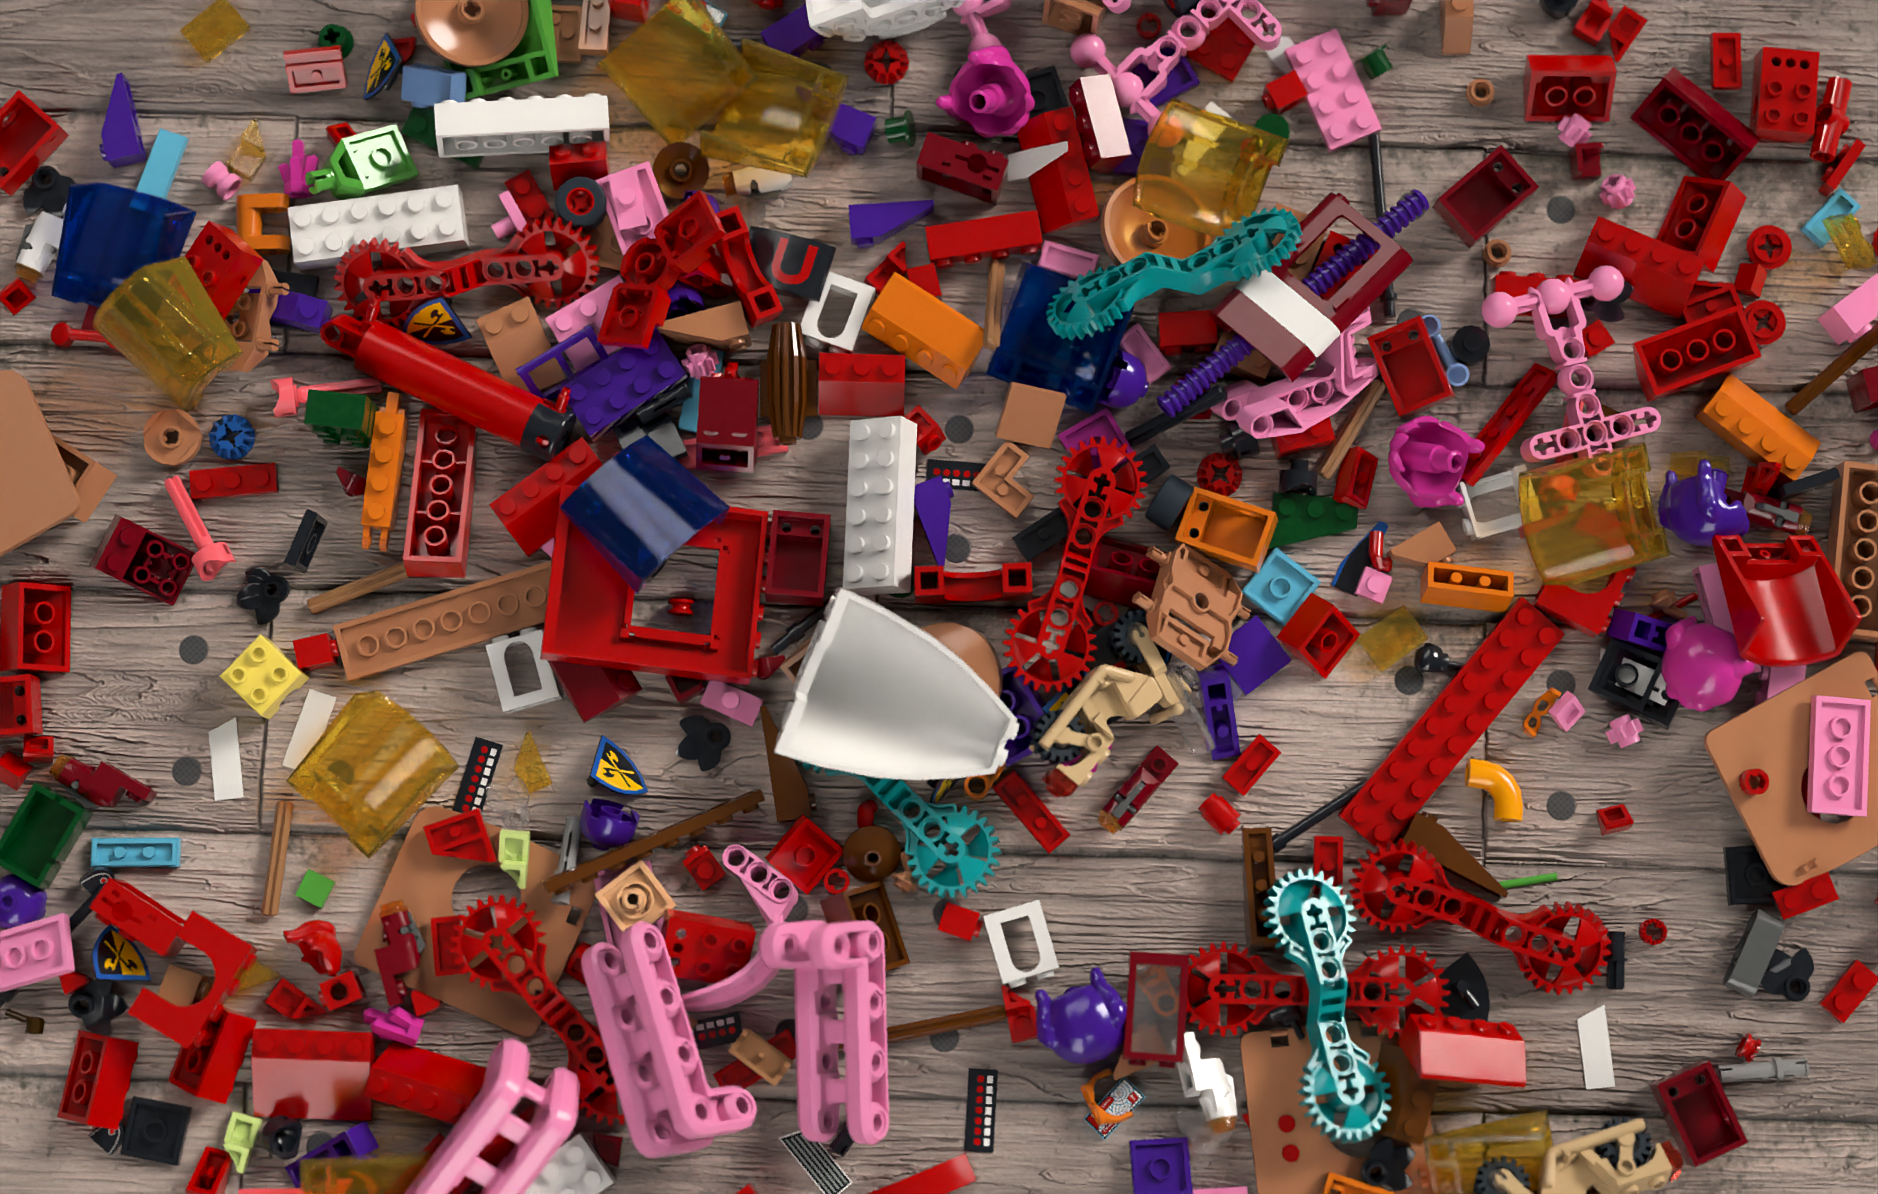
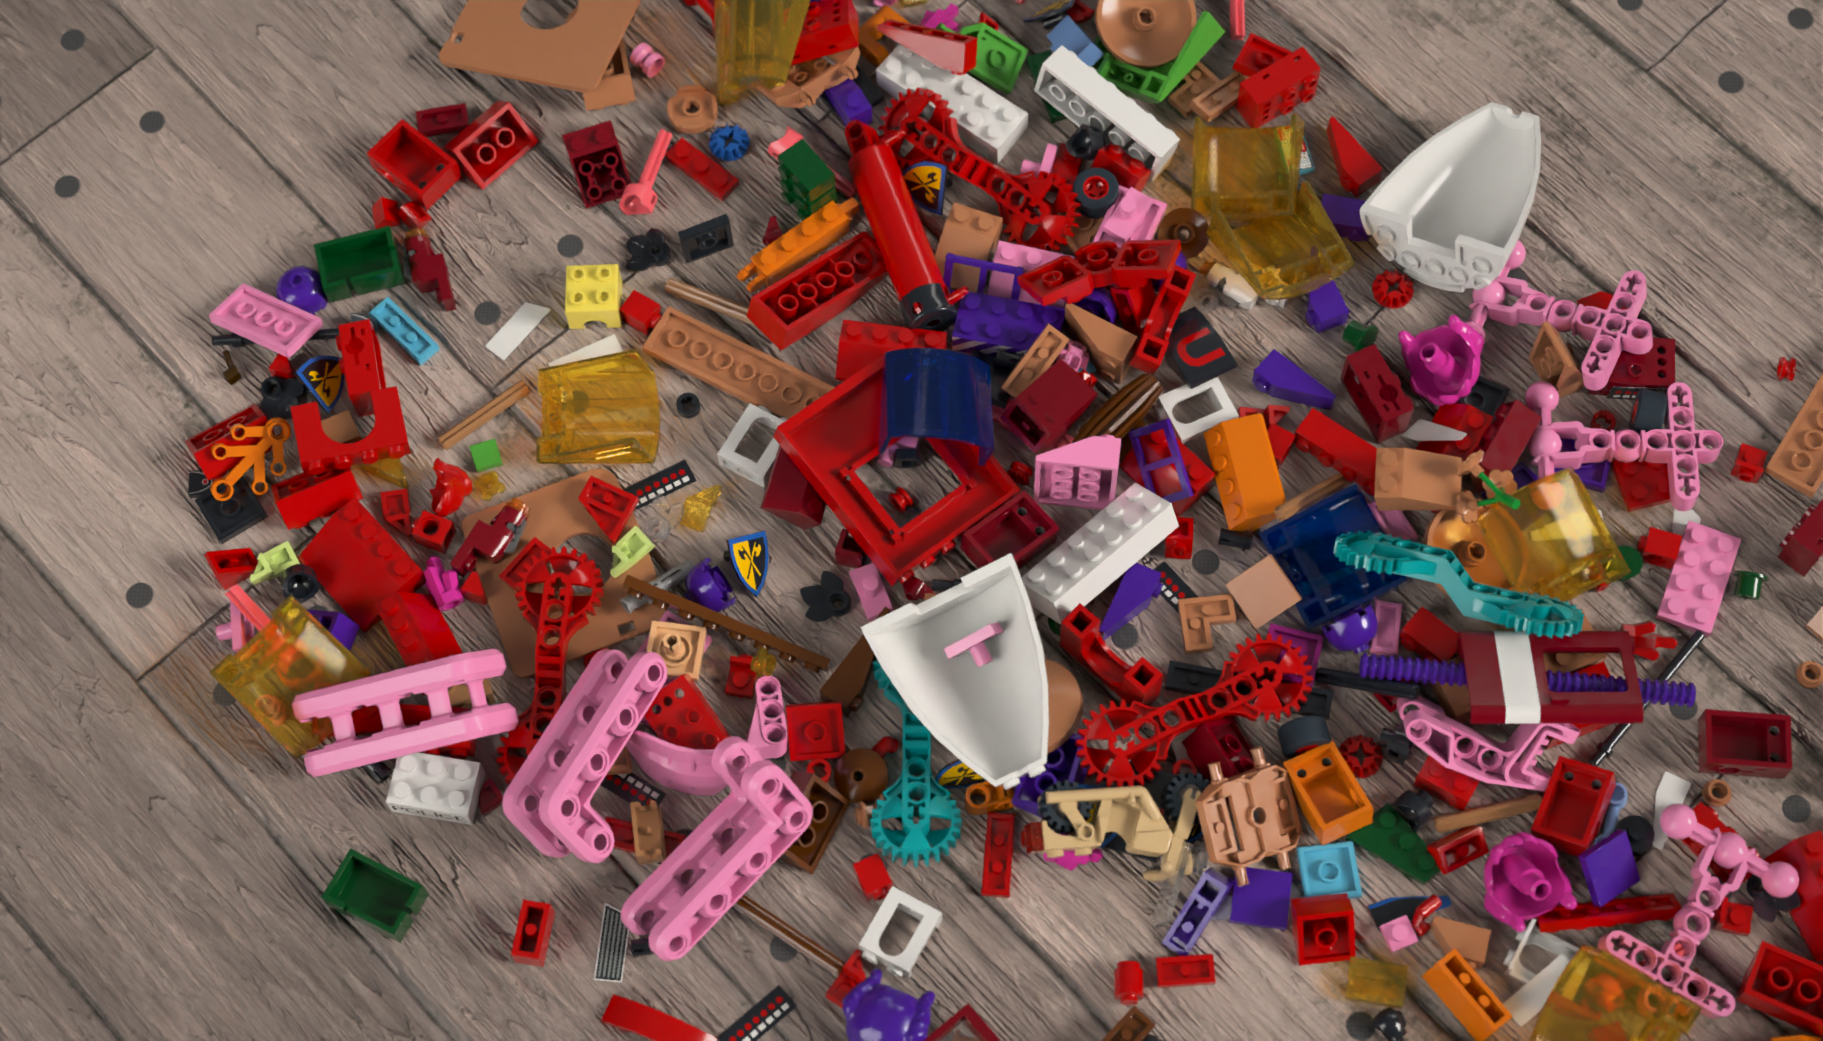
camera: 50 degrees right, 15 degrees down
(88, 430) = (646, 59): none -> bright pink wheel
(131, 1077) = (253, 455): none -> orange plant
(328, 197) = (940, 47): none -> slope
(337, 913) = (486, 479): none -> clear yellow plate
(429, 699) = (684, 398): none -> black bush
(529, 163) = (1085, 142): none -> black piece
(679, 397) = (1035, 360): none -> nougat plate
(714, 843) = (763, 663): none -> clear yellow plate
(750, 495) = (1020, 473): none -> red bush
(814, 453) = (1079, 473): none -> bright pink slope
(865, 373) = (1176, 458): none -> dark purple window
(866, 674) = (975, 644): none -> bright pink tile
(966, 390) = (1235, 539): none -> black pin
(1065, 215) = (1416, 480): none -> nougat slope
(1128, 163) = (1498, 487): none -> nougat plant
(1136, 790) = (1086, 908): dark red plate -> none
(1340, 179) = (1646, 640): none -> red rock
(1468, 293) = (1670, 791): none -> white sticker
(1478, 390) = (1609, 868): none -> dark purple tile
(1508, 537) = (1533, 995): none -> white sticker

